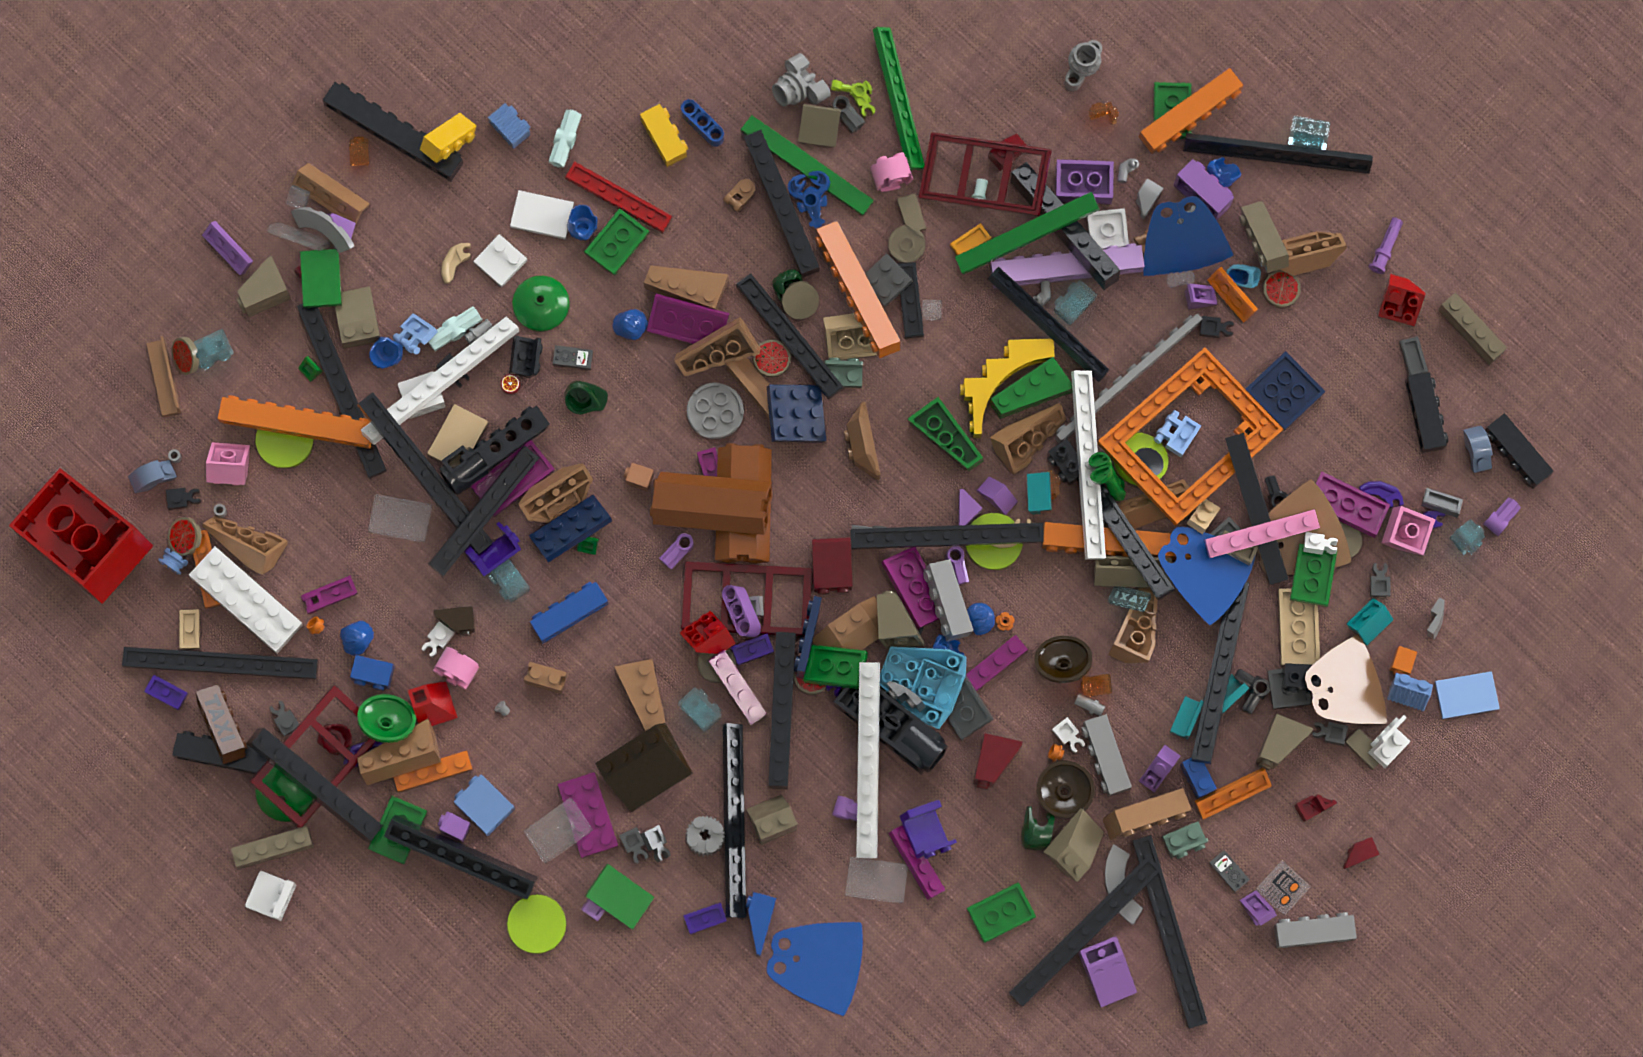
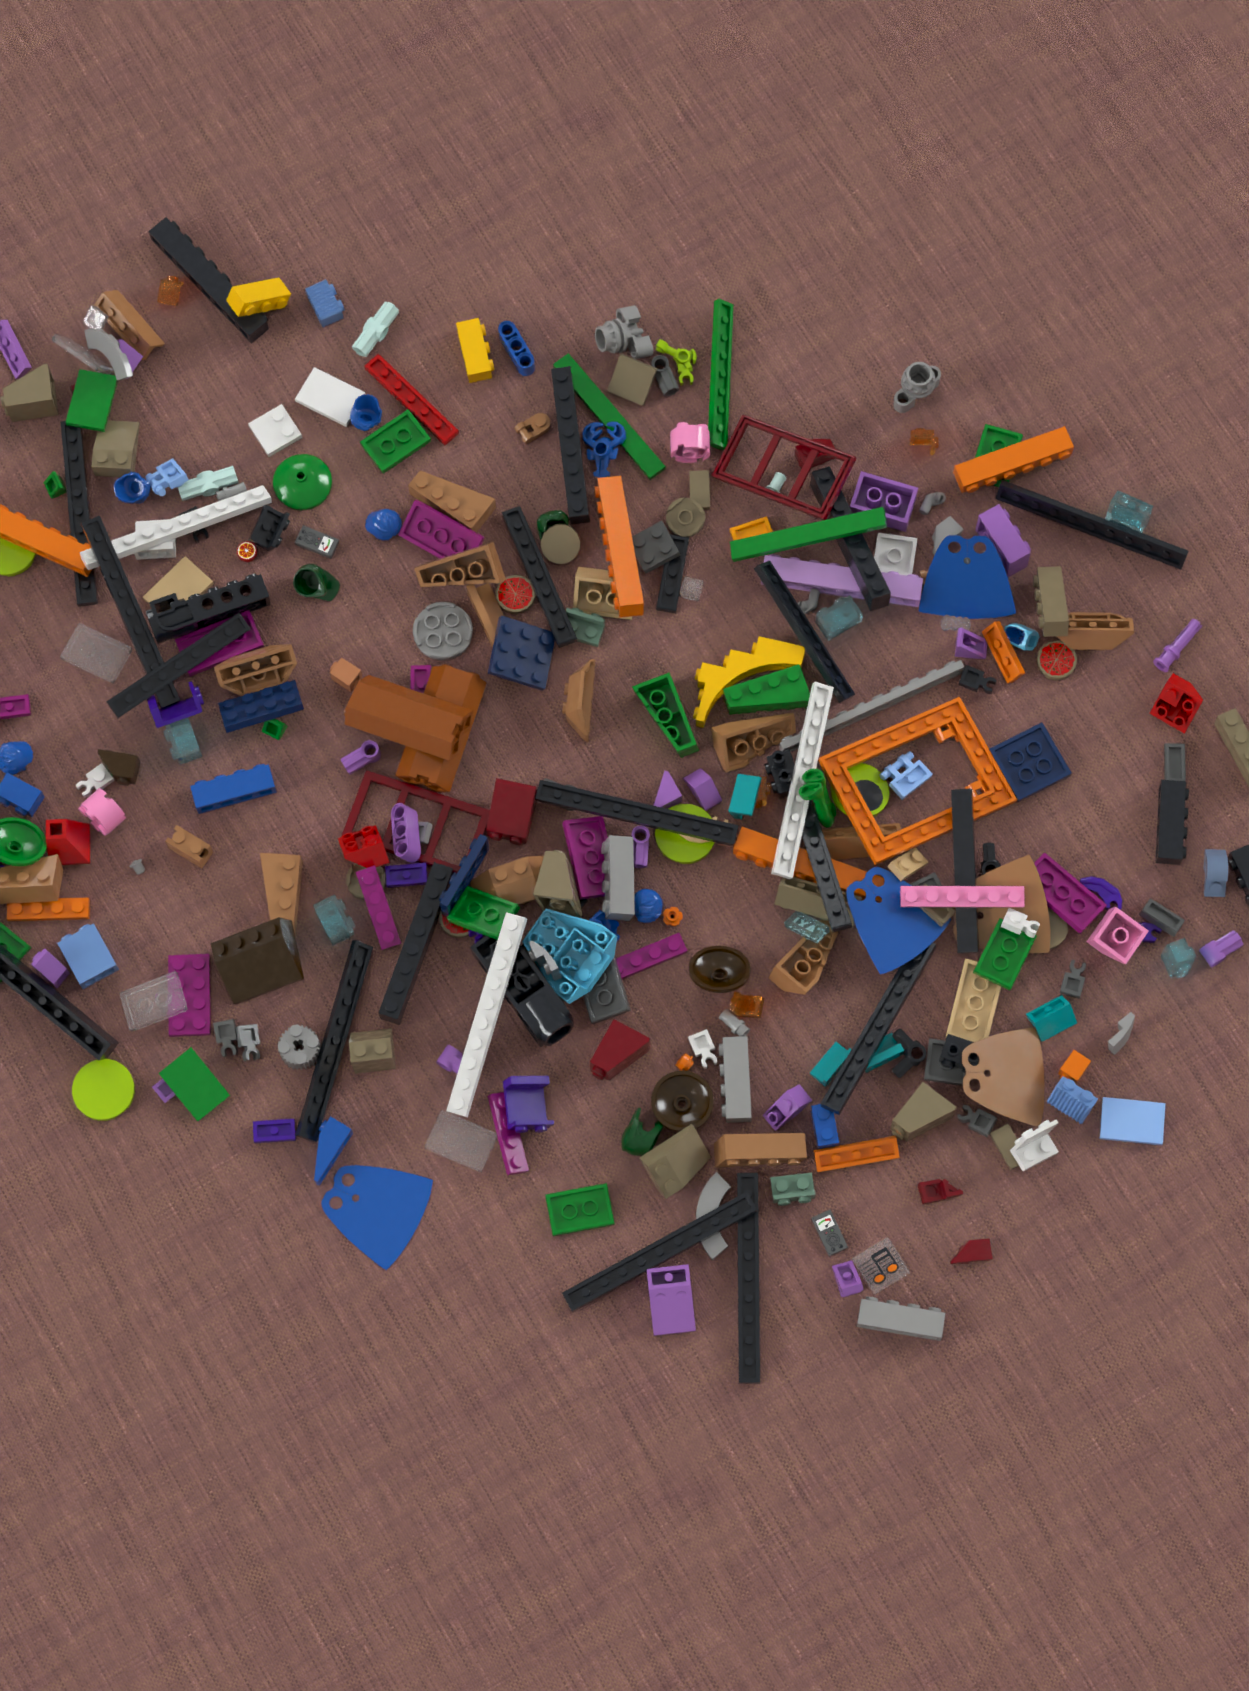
camera: 25 degrees right, 5 degrees down
(452, 260) = (231, 415): tan piece -> none
(1225, 173) = (1029, 530): blue hair -> none

